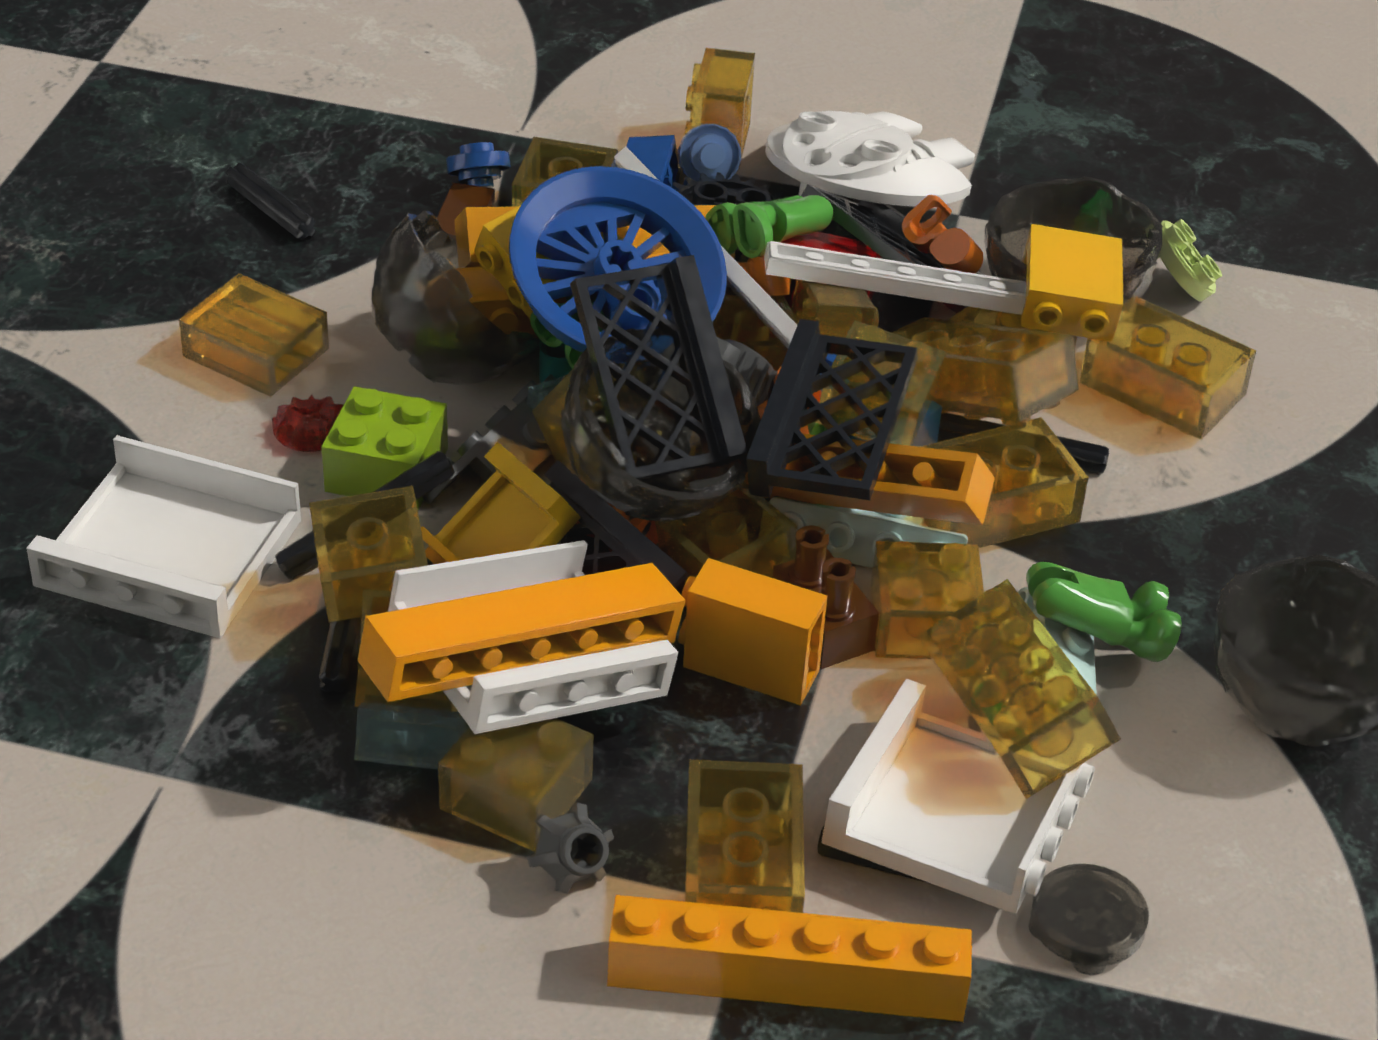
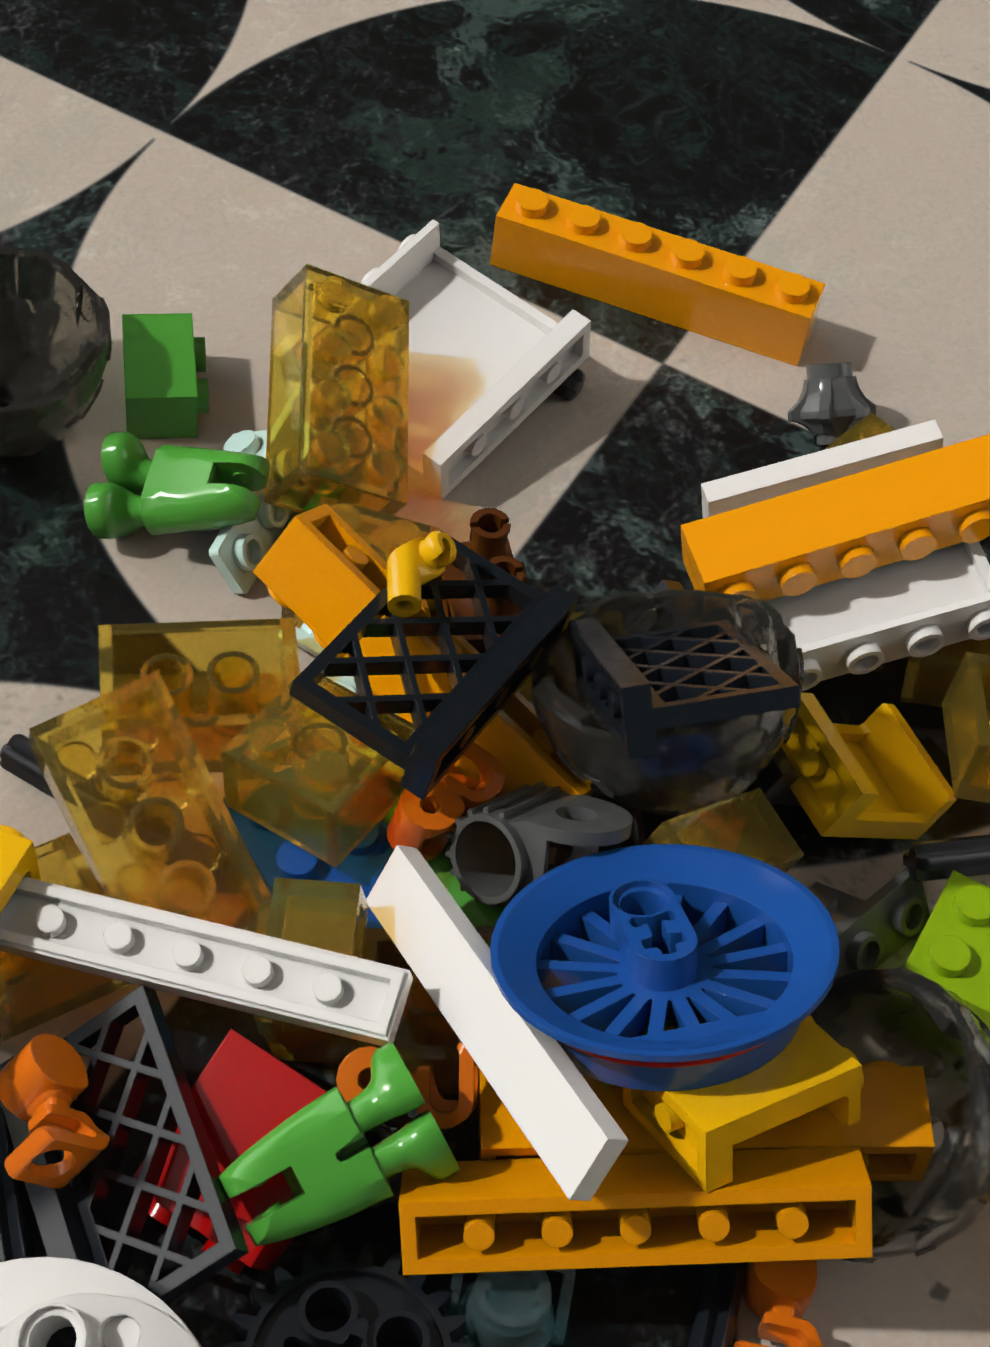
camera: 170 degrees left, 10 degrees up
(745, 835) = (669, 357): clear yellow brick -> none
(753, 630) = (585, 540): light orange brick -> none
(874, 433) = (412, 567): none -> yellow arm
(1089, 916) = (353, 243): clear smoke tile -> none
(1187, 734) = (161, 375): none -> bright green brick

